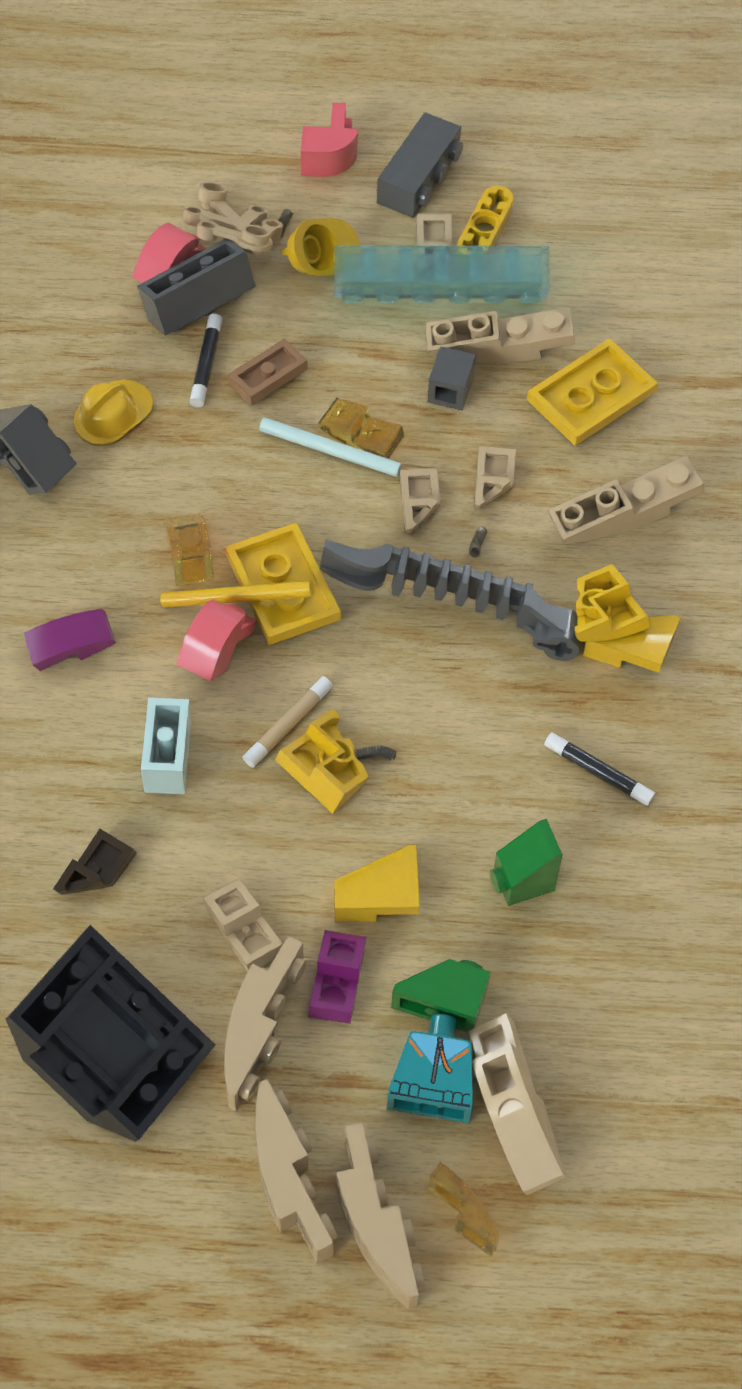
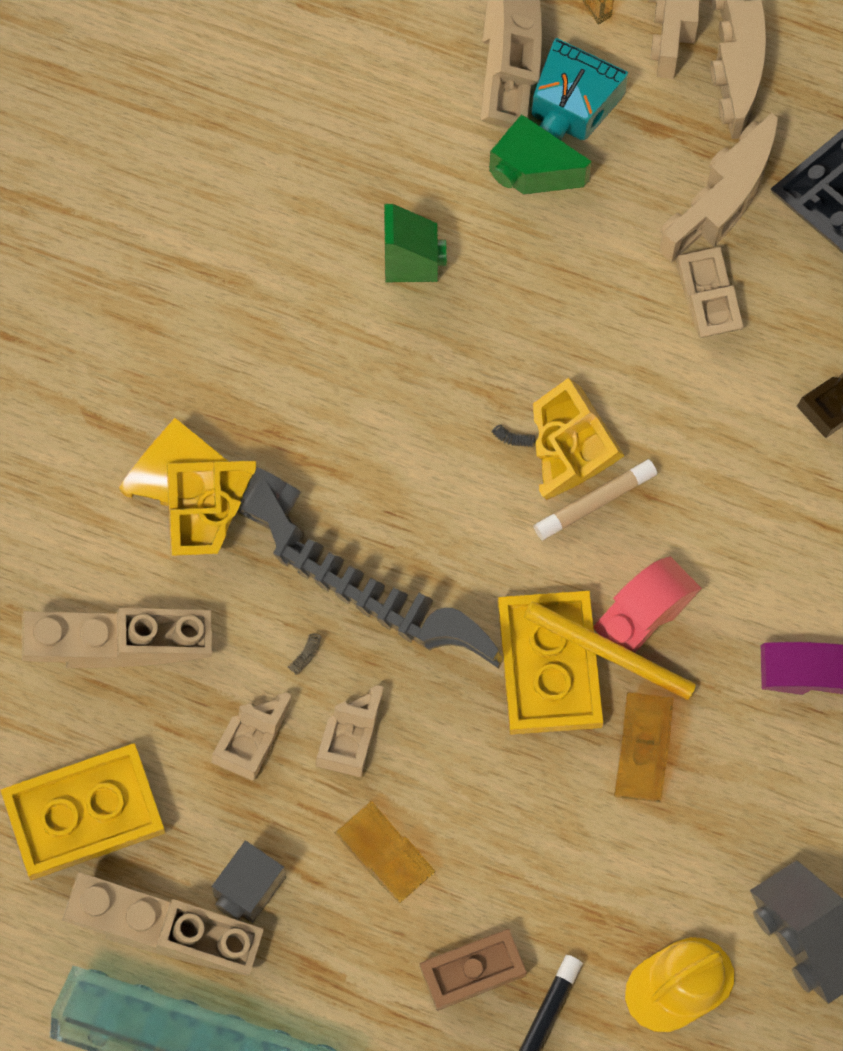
camera: 160 degrees left, 10 degrees up
(166, 746) = (739, 487): light aqua brick -> none
(330, 447) = (431, 840): light aqua bar -> none
(337, 977) = (633, 217): magenta slope -> none
(379, 888) = (562, 286): yellow slope -> none
(600, 769) = (286, 346): black bar -> none

